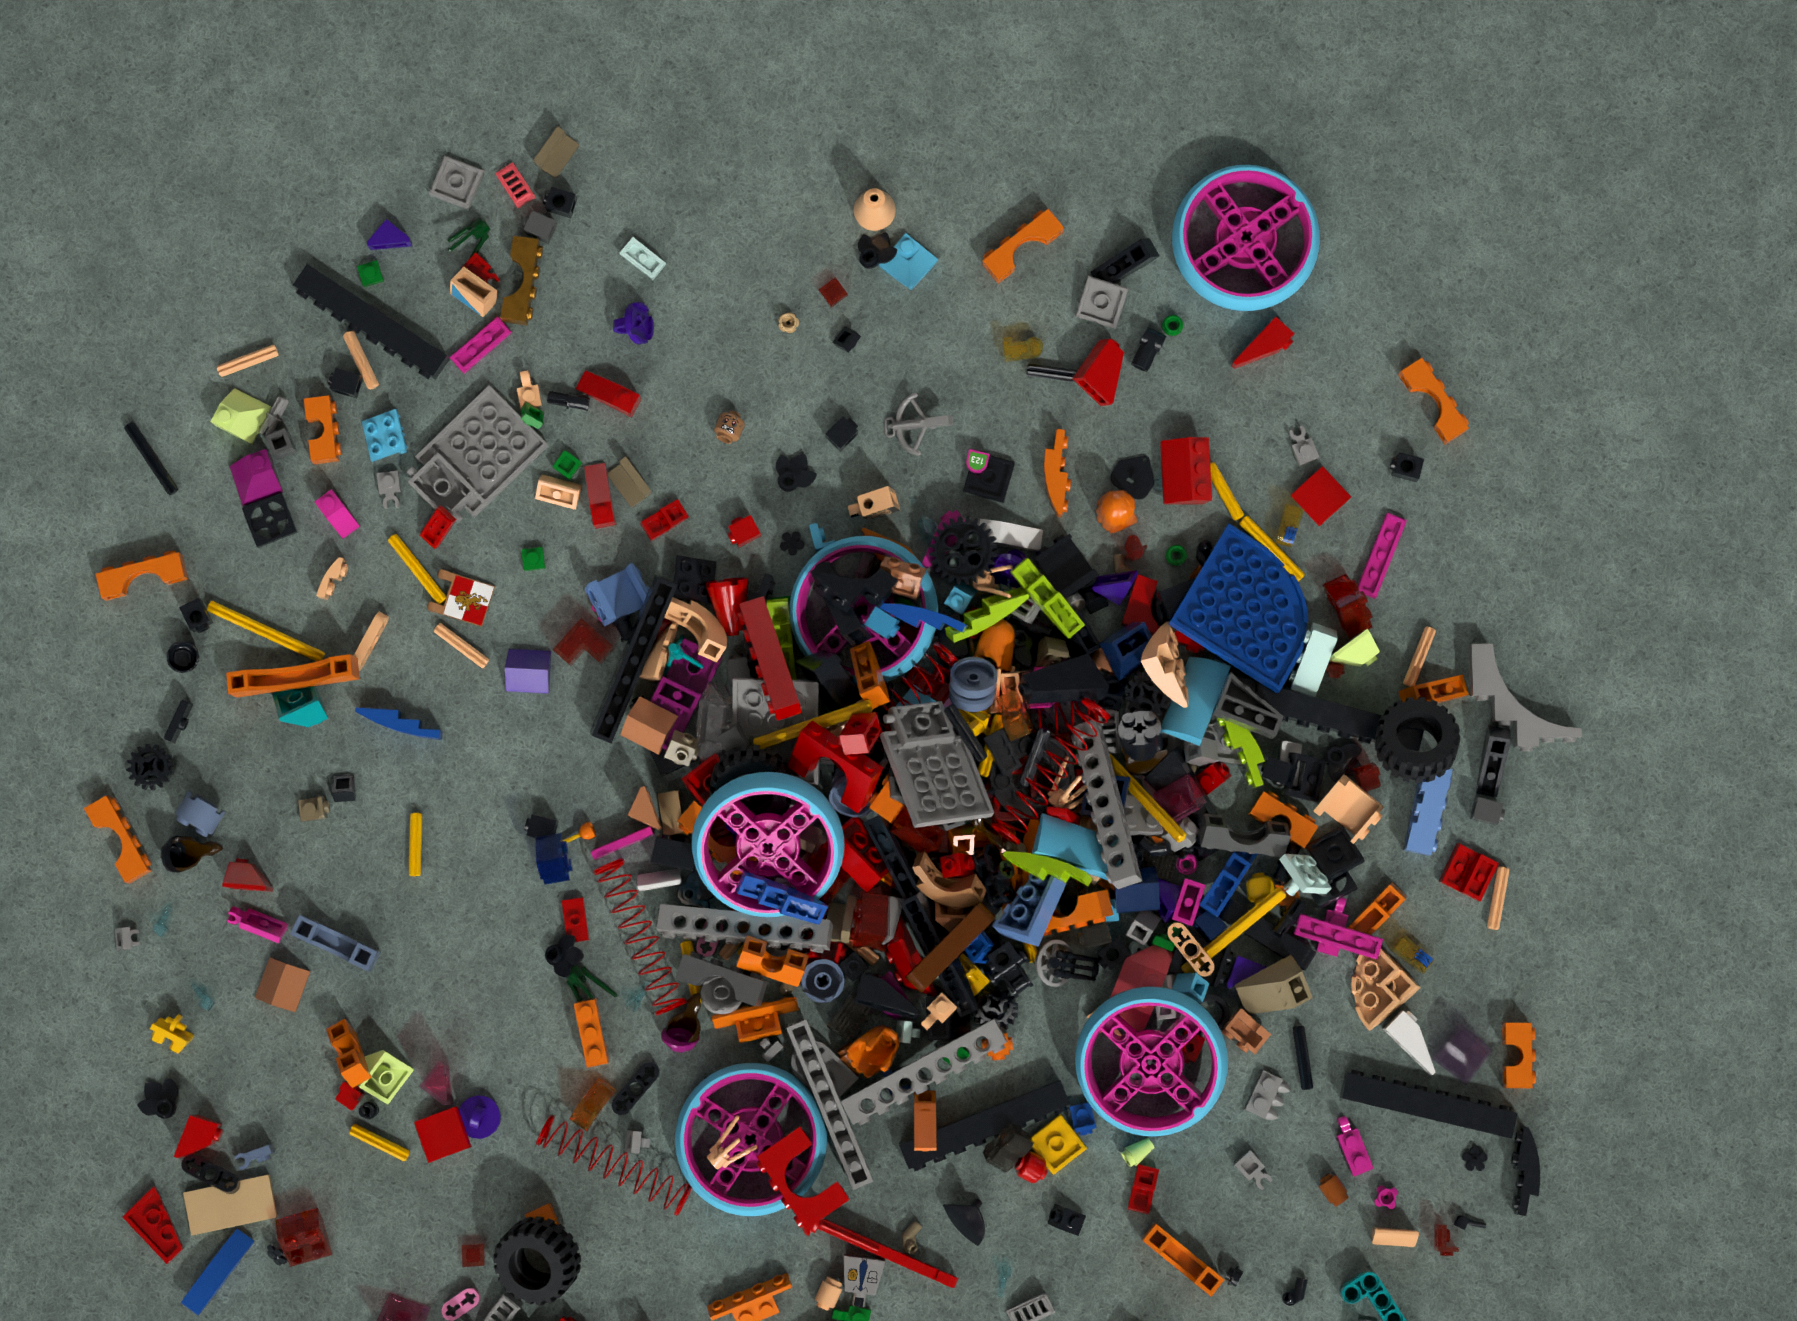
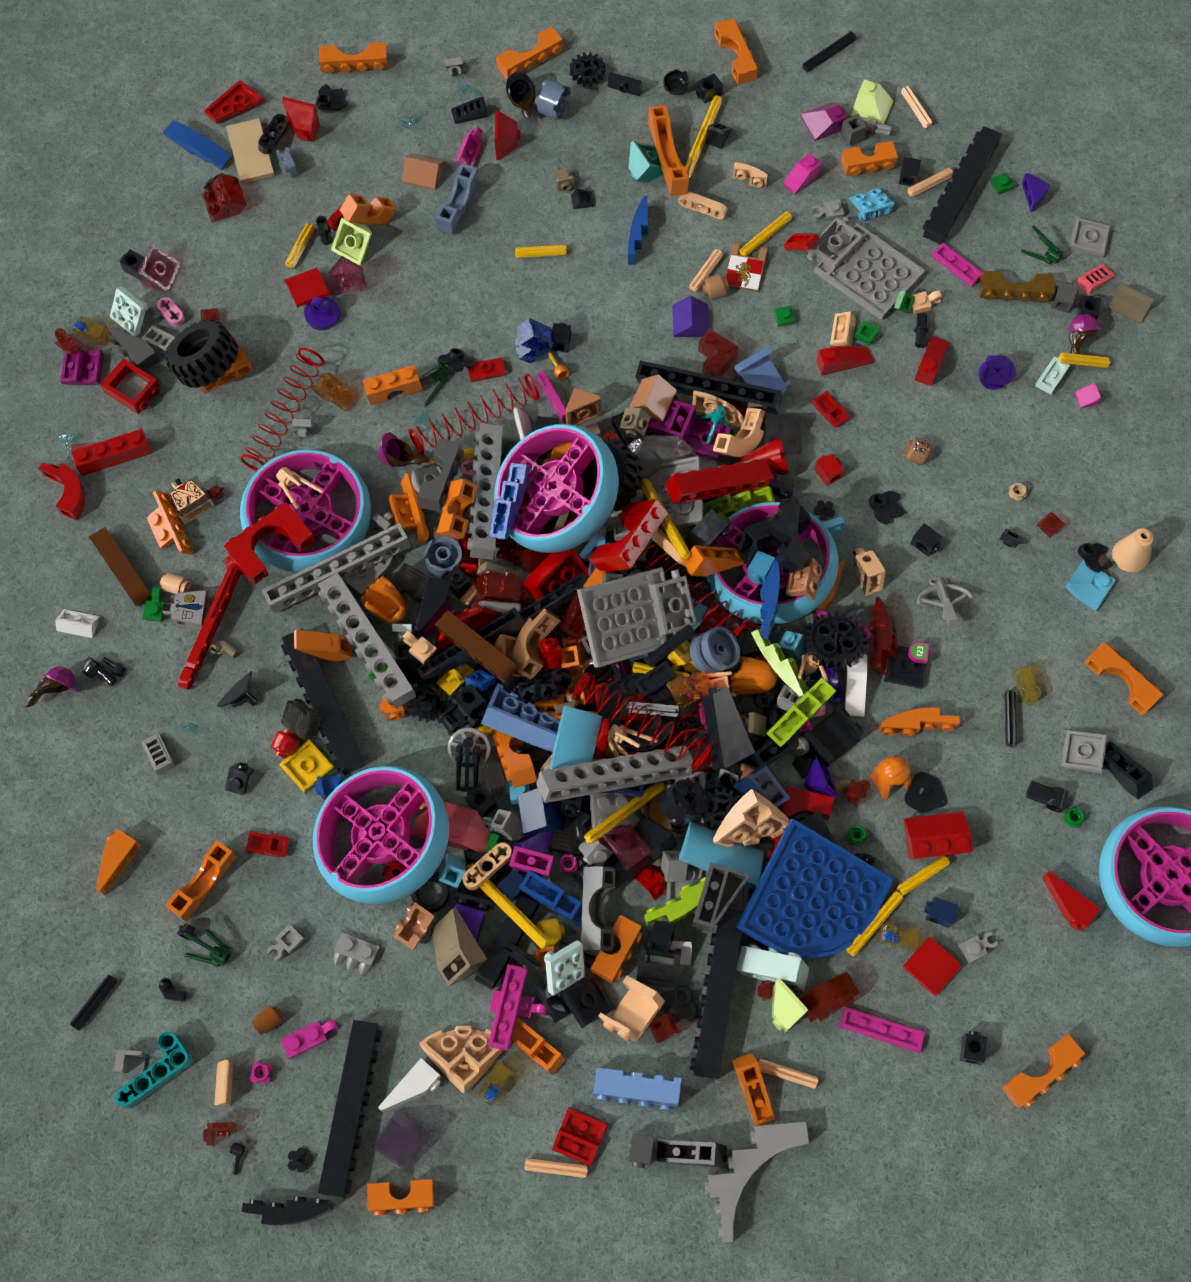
camera: 85 degrees right, 15 degrees down
(103, 1095) = (372, 58): none -> orange arch
(173, 1030) = (383, 99): yellow hips -> none
(202, 903) = (474, 115): none -> black slope
(264, 610) = (717, 134): none -> black slope
(280, 516) = (786, 146): black piece -> none
(473, 291) = (1001, 251): light nougat brick -> none
(480, 268) = (1019, 256): red plate -> none
(489, 636) = (715, 286): none -> medium nougat head
(592, 216) = (1081, 330): none -> piece
(621, 1097) = (344, 417): black beam -> none
(628, 217) = (1084, 360): none -> yellow axle
(629, 482) = (859, 381): dark tan panel -> none
(673, 222) = (1088, 396): none -> slope
(714, 1247) = (216, 492): none -> clear red plate
(721, 1278) = (189, 500): none -> torso
(860, 733) = (658, 544): red brick -> none
(946, 494) = (884, 630): none -> clear red slope
(1042, 865) = (551, 719): lime slope -> none
(1101, 371) = (1019, 752): red slope -> none
(1137, 1152) = (300, 835): yellowish green cone -> none
(1260, 1241) = (218, 954): none -> dark green plant
(1265, 479) = (940, 912): none -> dark blue brick
(1302, 1057) = (392, 984): black axle -> none
(1420, 715) = (726, 1055): black tyre -> none

